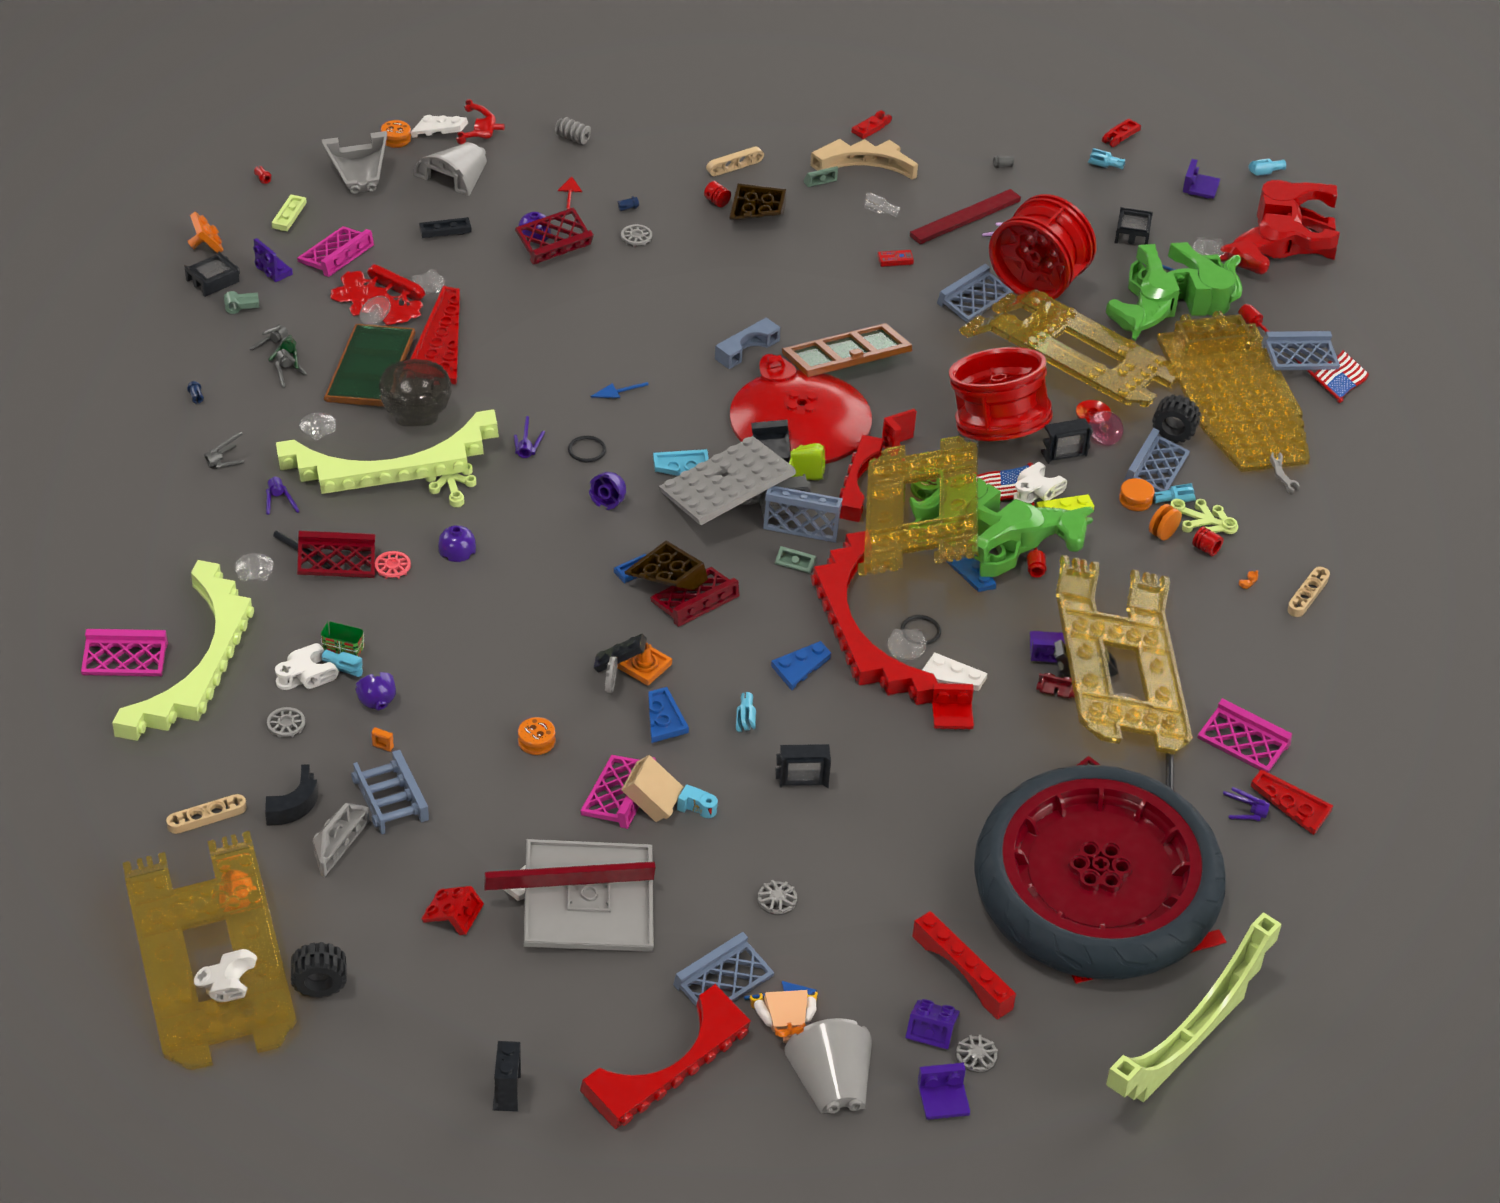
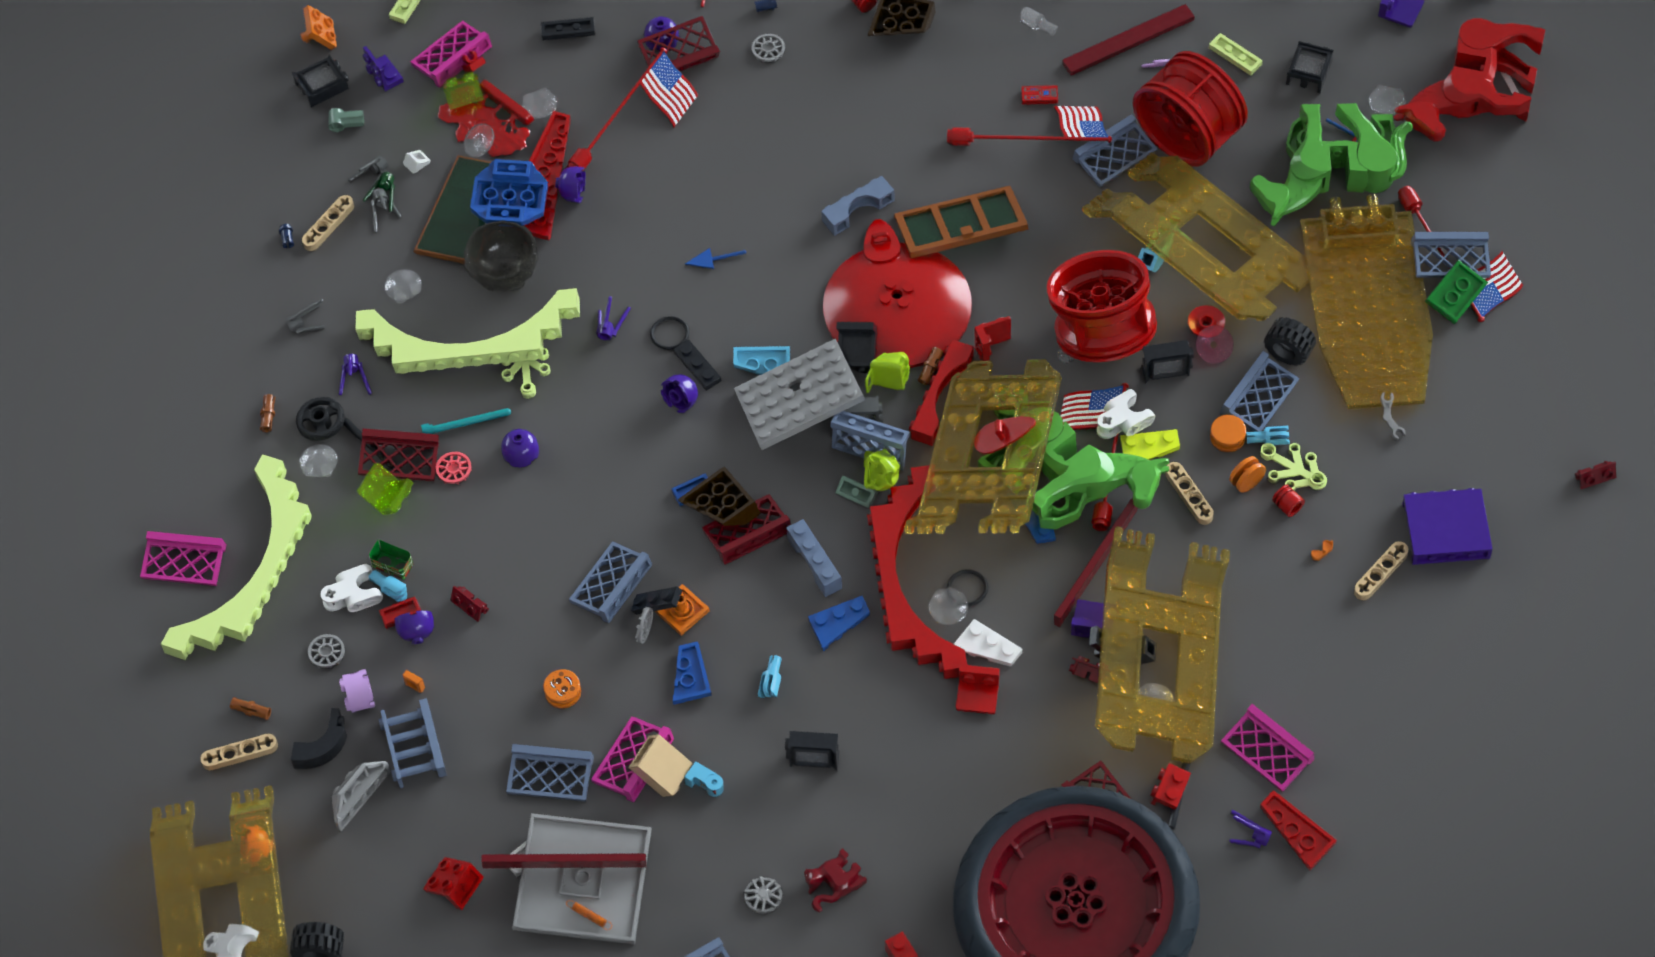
camera: 15 degrees right, 15 degrees up
(196, 530) = (267, 413): none -> dark orange pin
(201, 773) = (250, 708): none -> dark orange pin
(223, 394) = (325, 221): none -> tan beam
(250, 527) = (322, 425): none -> black wheel
(314, 331) = (416, 161): none -> white slope
(326, 584) = (384, 489): none -> clear neon green bracket
(326, 748) = (357, 690): none -> lavender brick
(347, 687) = (389, 613): none -> red tile
(355, 274) = (463, 90): none -> clear neon green bracket
(359, 253) = (472, 64): none -> red tile
(401, 526) = (430, 429): none -> teal piece
(414, 338) = (509, 180): none -> blue piece
(426, 672) = (463, 599): none -> dark red hinge
(471, 337) = (571, 183): none -> dark purple cylinder
(537, 793) = (554, 756): none -> sand blue fence
(545, 262) = (664, 87): none -> flag
(581, 649) = (614, 600): none -> sand blue fence
(594, 921) = (592, 916): none -> orange piece
(609, 463) = (697, 365): none -> black plate
(781, 623) = (822, 568): none -> sand blue arch
(819, 536) = (880, 470): none -> lime piece
(844, 458) = (930, 366): none -> dark orange pin
(849, 874) = (837, 879): none -> dark red animal
(931, 273) = (1075, 123): none -> flag
(932, 494) = (1002, 433): none -> red shield
(1038, 603) = (1093, 565): none -> dark red tile
(1128, 556) = (1186, 494): none -> tan beam
(1162, 769) = (1171, 786): none -> red bracket
(1313, 378) = (1456, 292): none -> green tile
(1361, 552) = (1447, 526): none -> dark purple panel
(1481, 507) = (1599, 474): none -> dark red hinge

